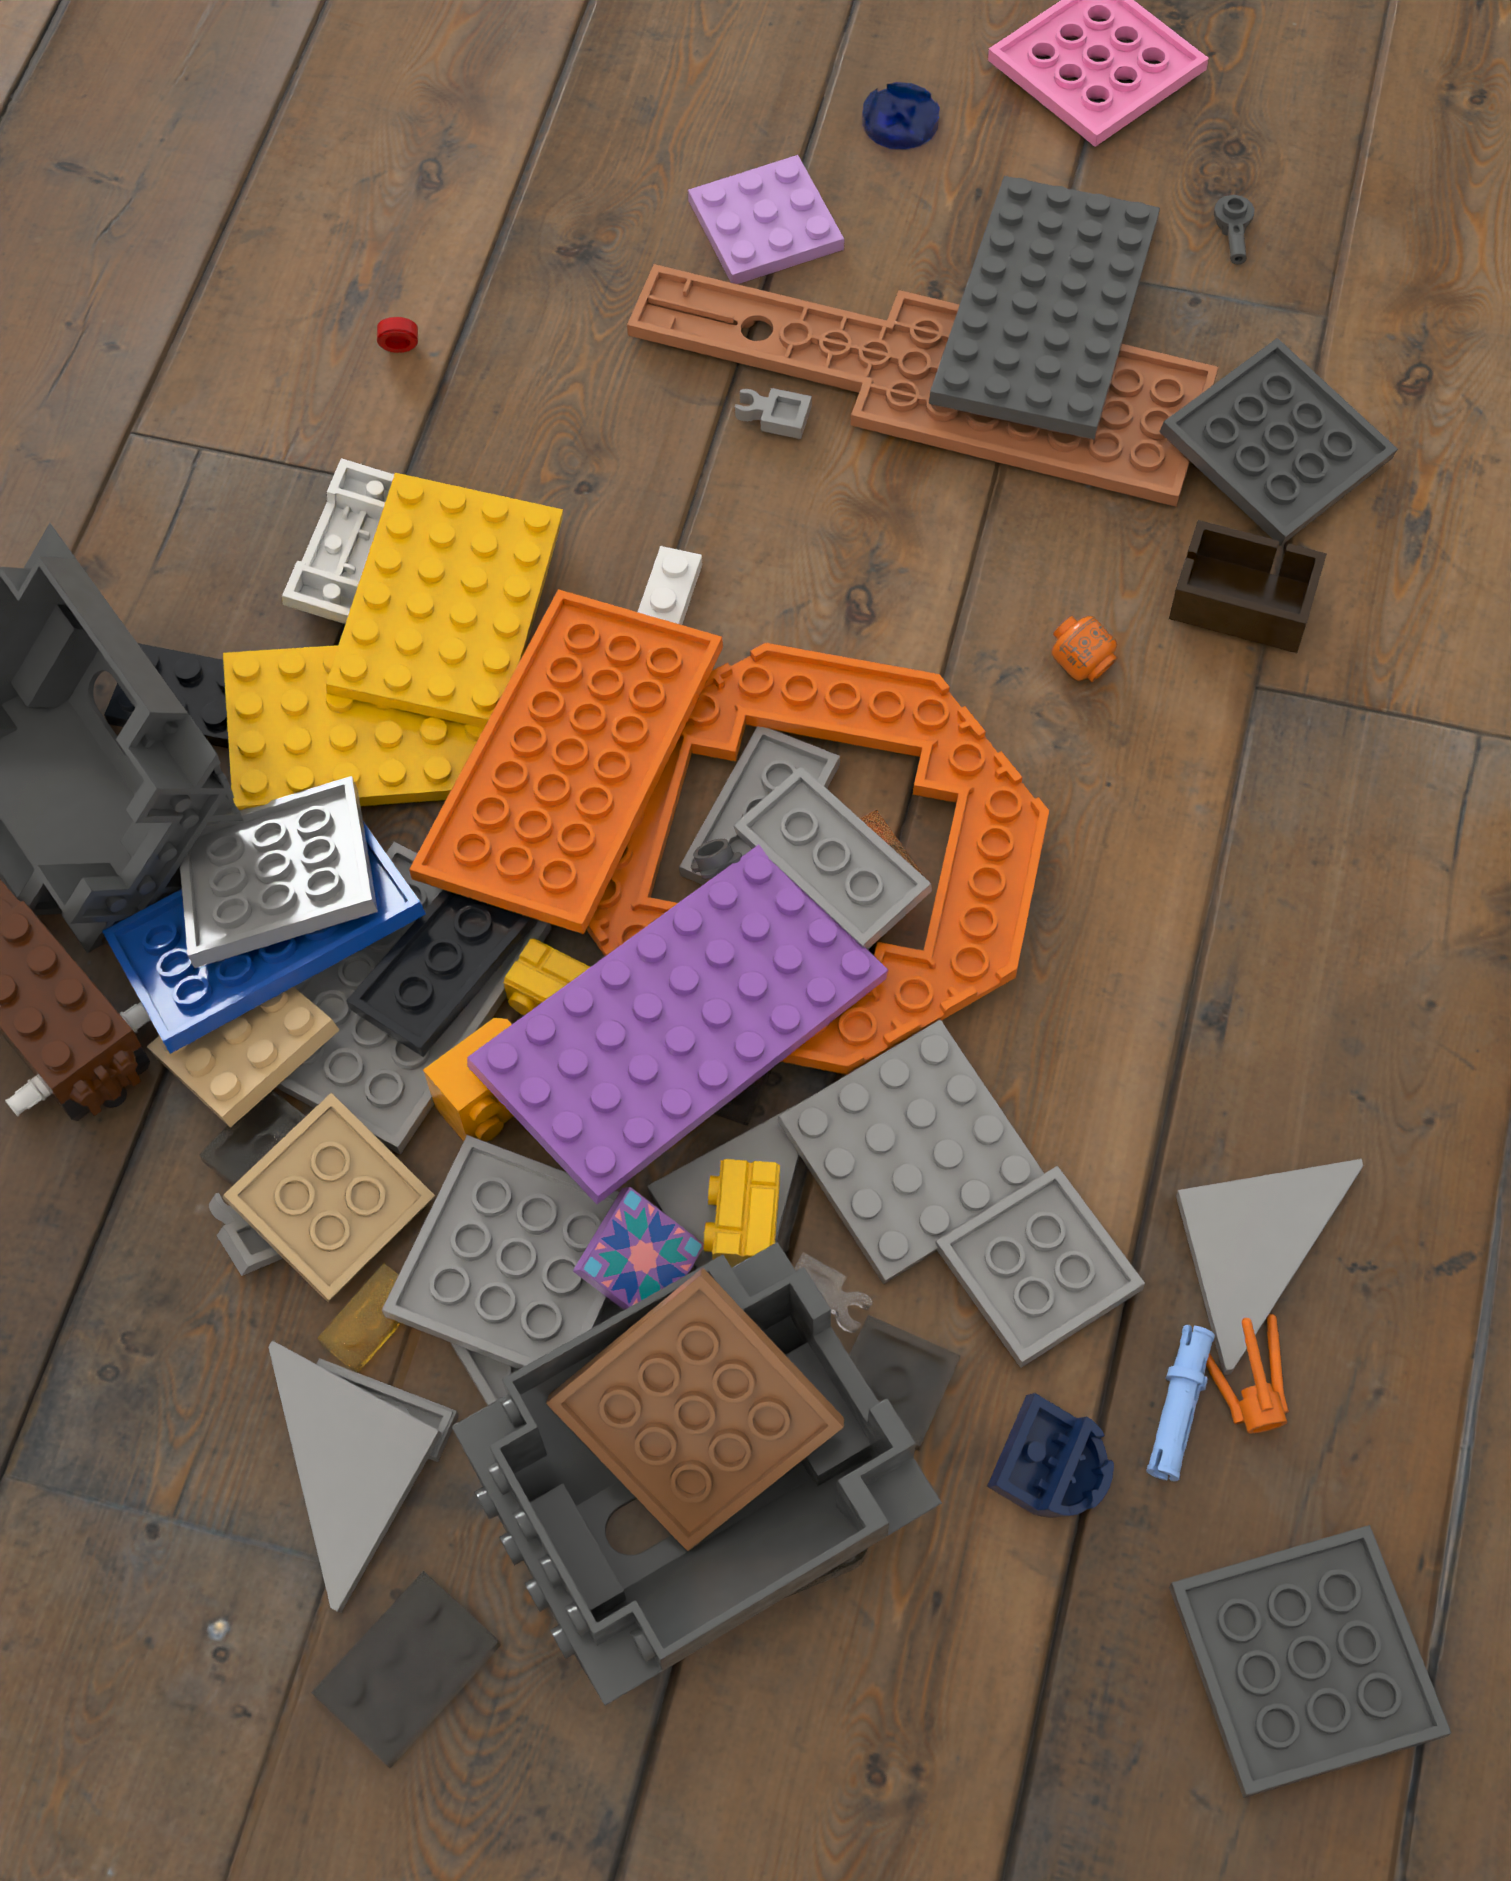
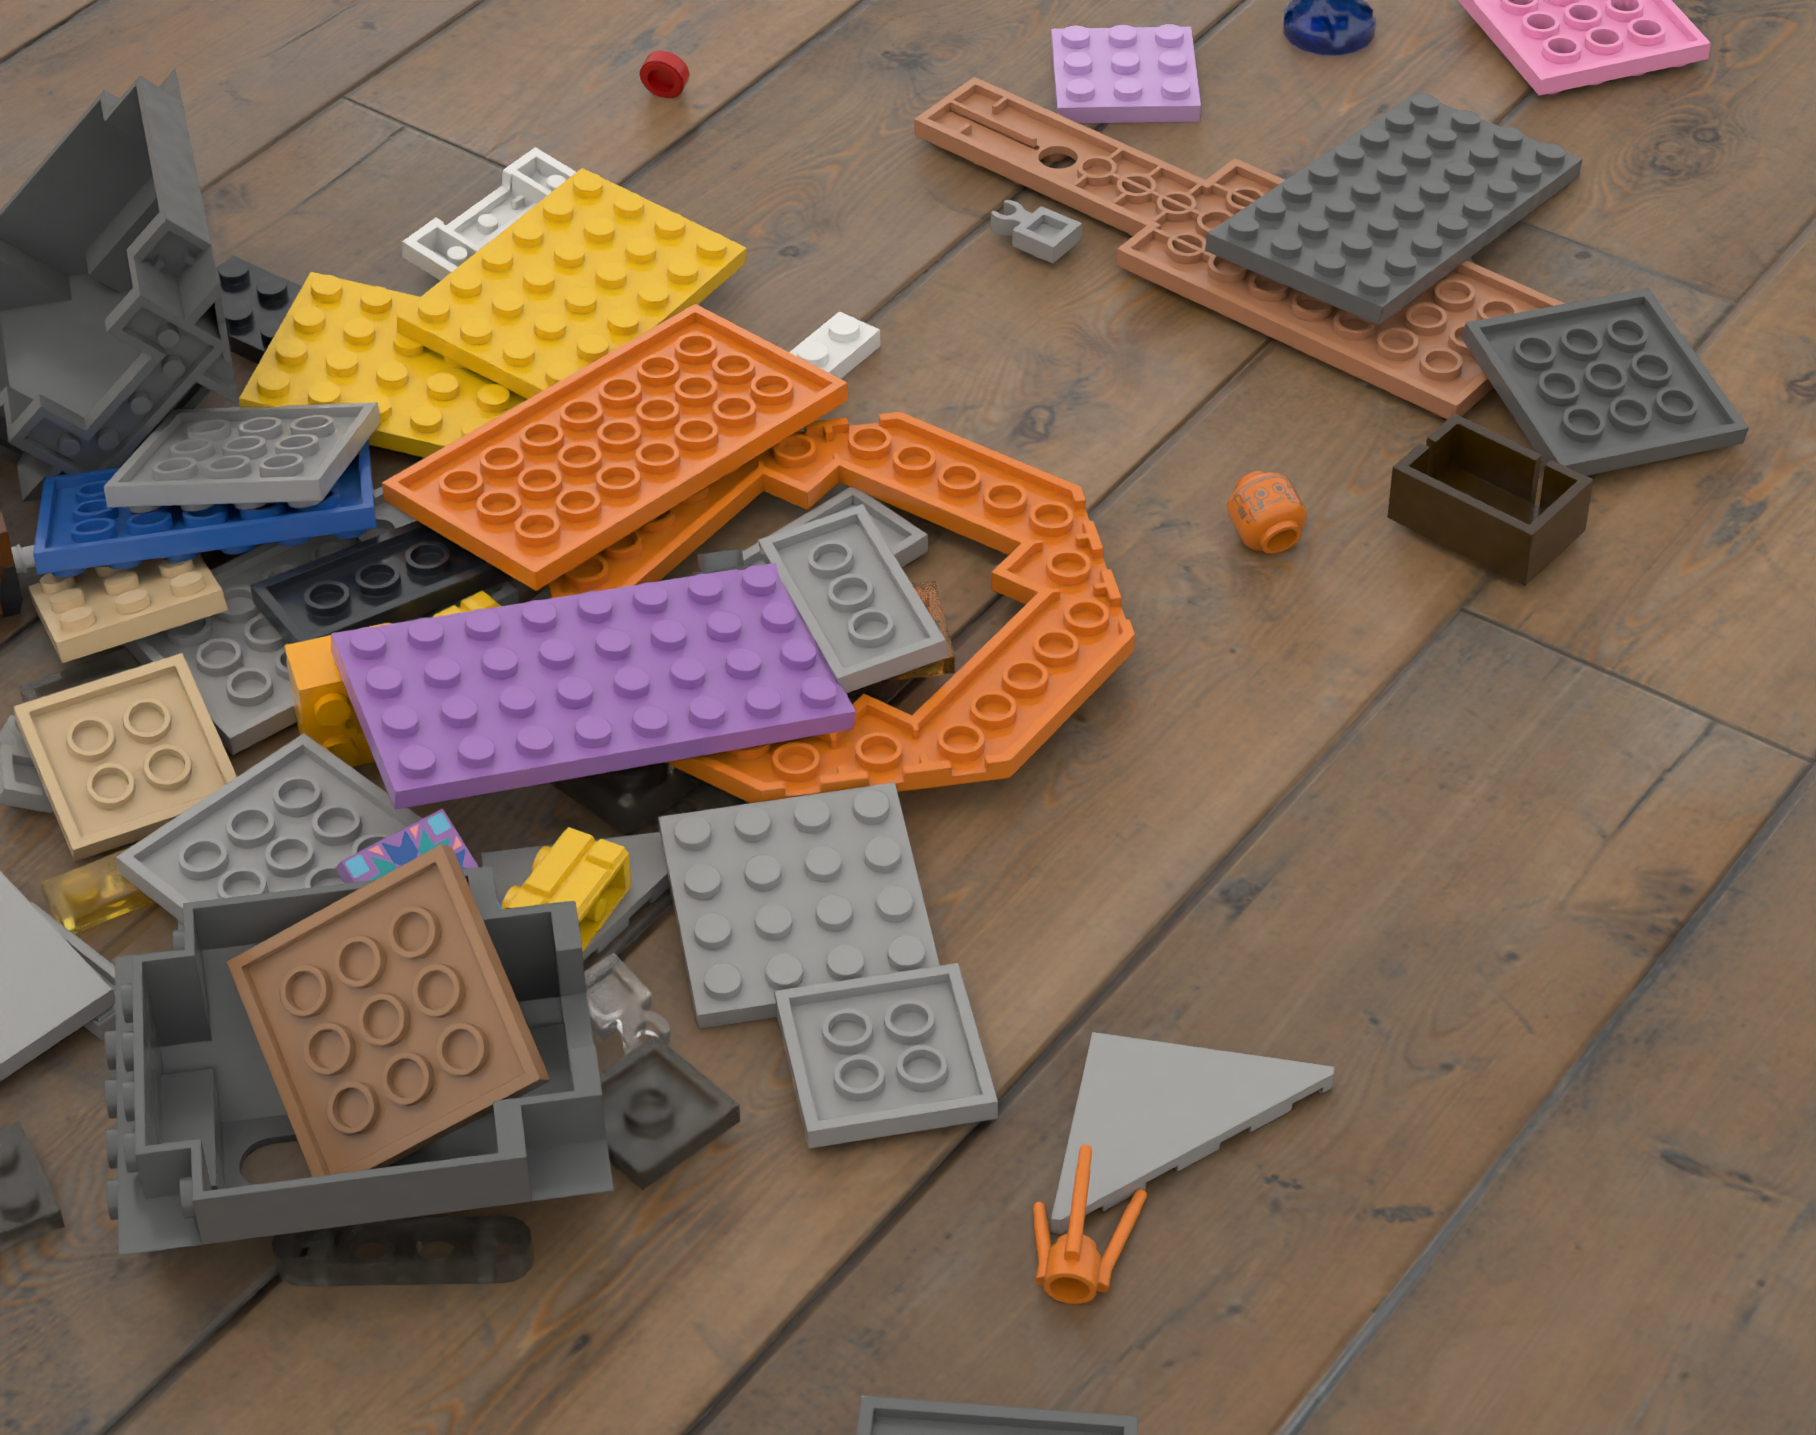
camera: 20 degrees right, 20 degrees down
(1052, 1461) = (788, 1241): dark blue slope -> none
(1178, 1411) = (995, 1215): light blue pin -> none
(1232, 216) = (1668, 189): dark grey plate -> none

